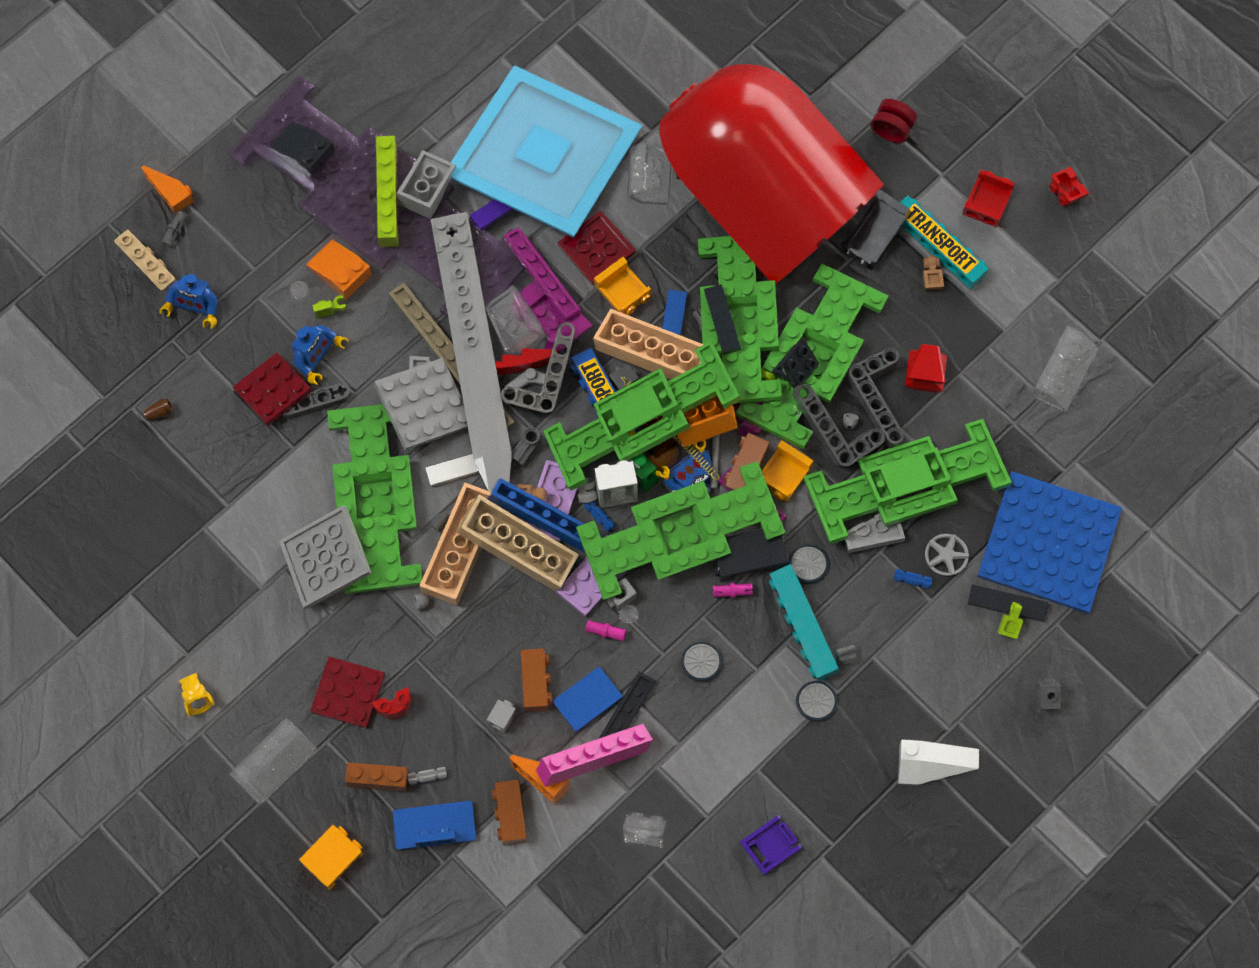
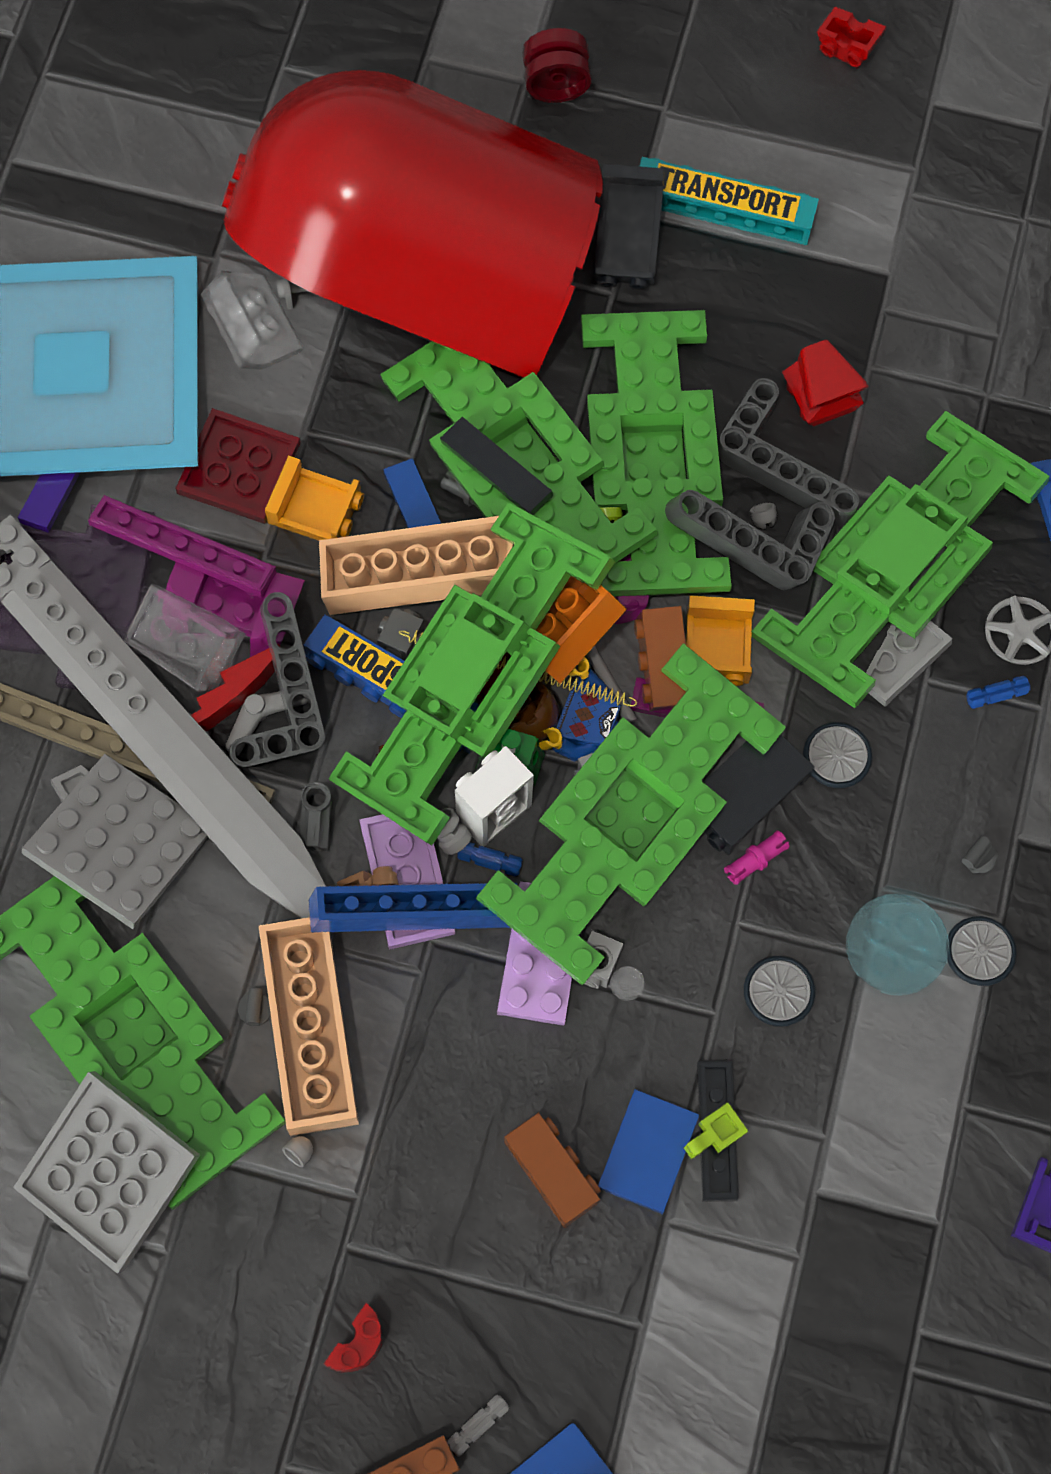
camera: 35 degrees left, 0 degrees up
(347, 692) = (269, 1367): dark red plate -> none
(451, 470) = (222, 918): white tile -> none
(501, 715) = (536, 1256): light grey brick -> none
(509, 812) = (645, 1405): dark orange brick -> none
(517, 543) = (398, 973): tan brick -> none
(527, 769) = (672, 1318): orange slope -> none
(593, 755) = (725, 1238): dark pink brick -> none
(605, 630) = (610, 1028): dark pink pin -> none
(627, 708) = (719, 1130): none -> lime plate
(644, 830) = (868, 1303): clear slope -> none
(775, 673) = (897, 944): none -> clear light blue tile
(797, 364) = (646, 472): black bracket -> none
(804, 622) = (893, 845): teal brick -> none
(932, 278) = (746, 254): medium nougat plate -> none
(988, 198) = (751, 107): red panel -> none
(1065, 369) = (1007, 283): clear slope -> none

